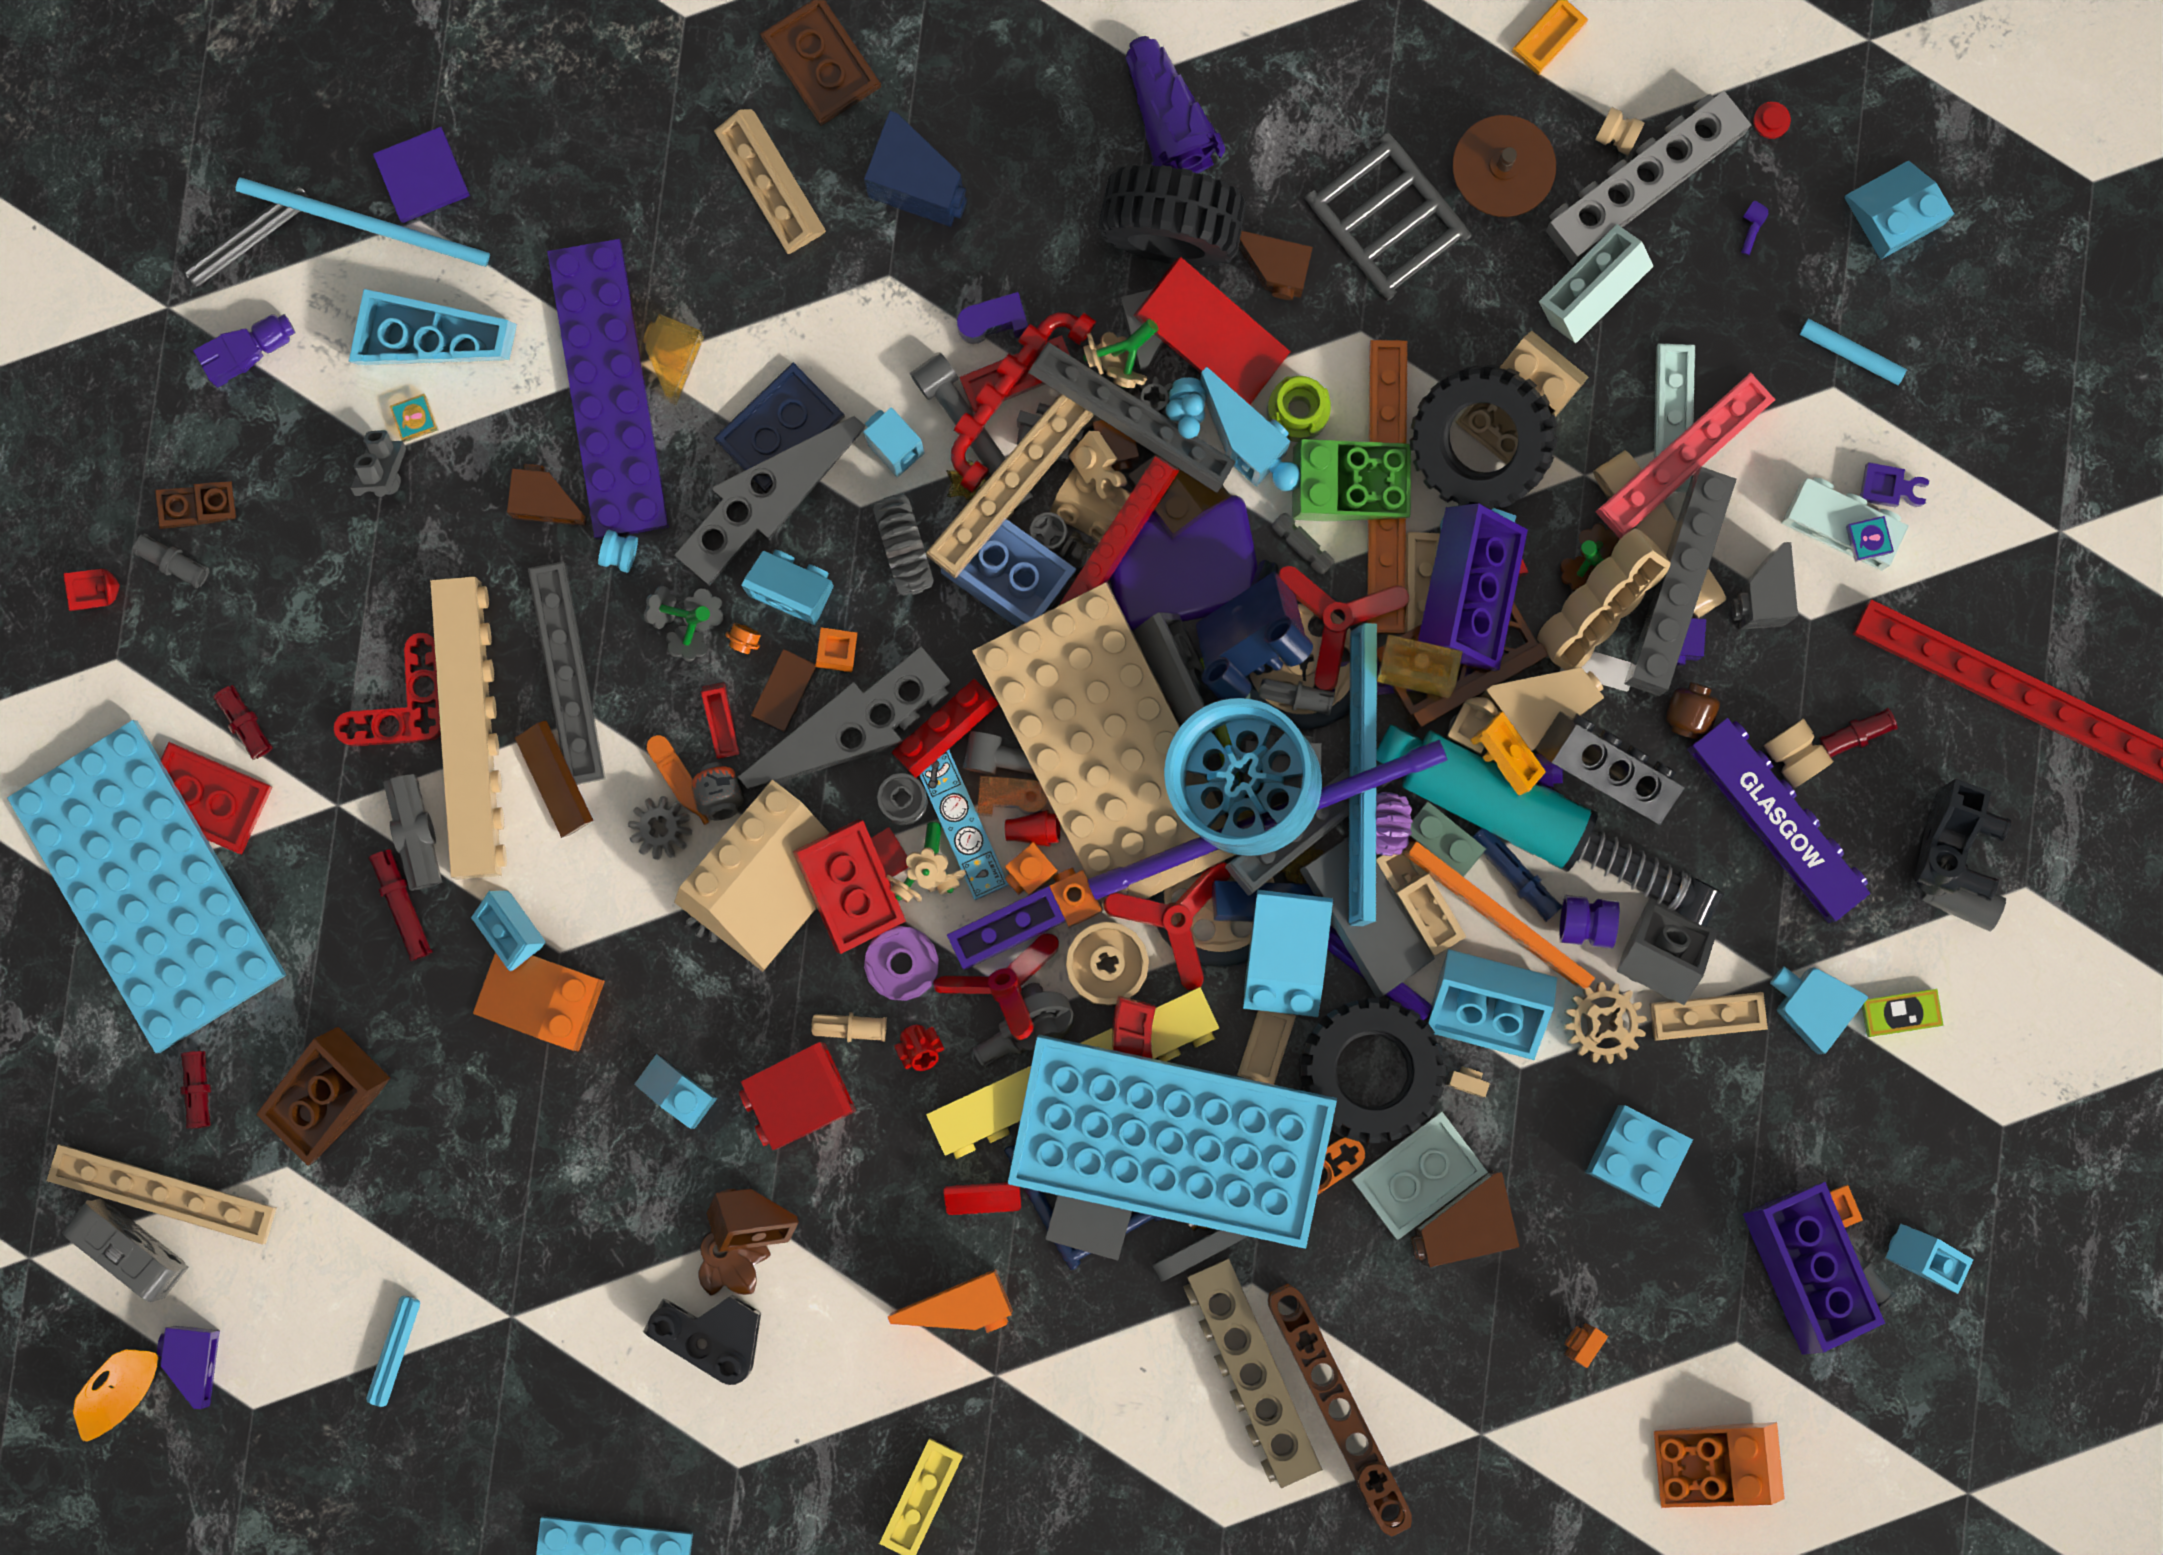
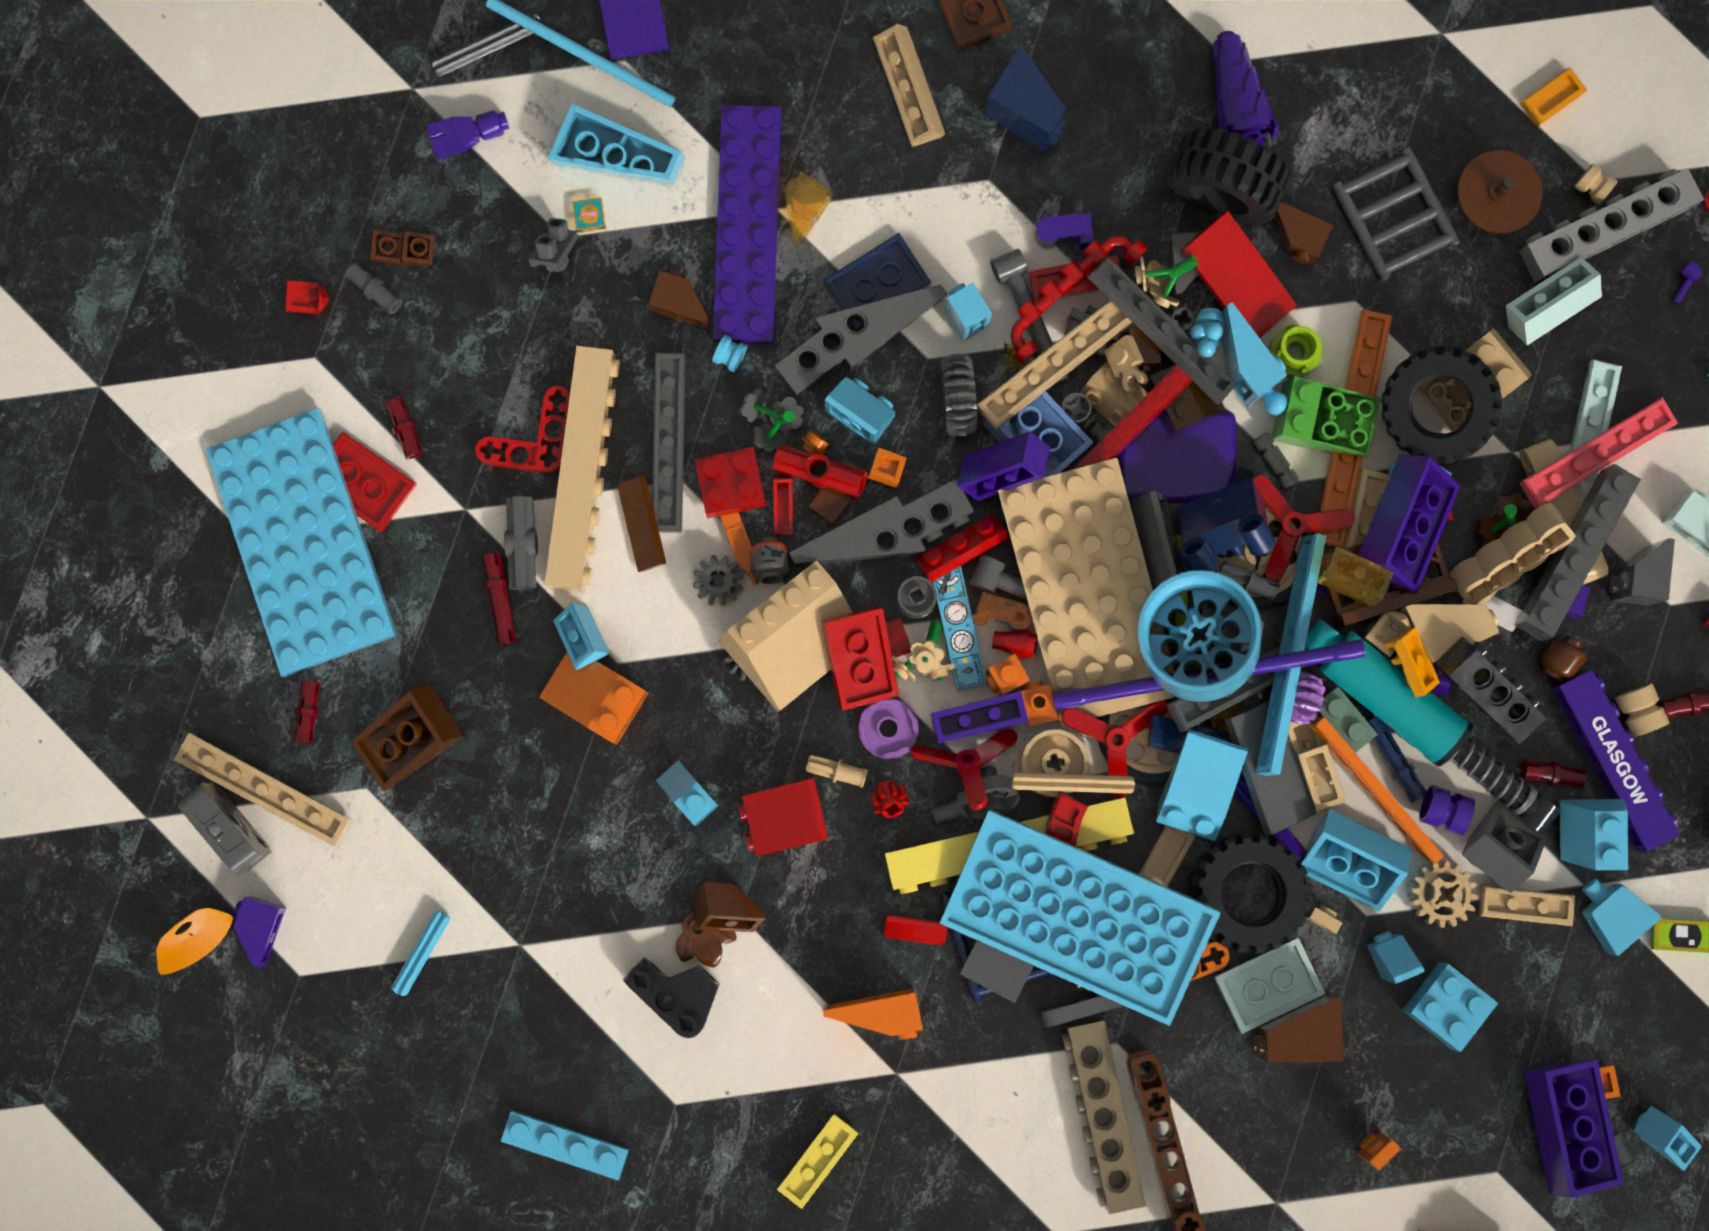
camera: 10 degrees right, 0 degrees up
(650, 707) = (730, 482): none -> red plate
(776, 672) = (837, 476): none -> red piece
(973, 620) = (1003, 466): none -> dark purple brick
(1132, 982) = (1072, 782): none -> tan axle
(1559, 1111) = (1394, 958): none -> medium azure slope
(1708, 851) = (1553, 774): none -> dark red pin
(1768, 913) = (1594, 833): none -> medium azure slope

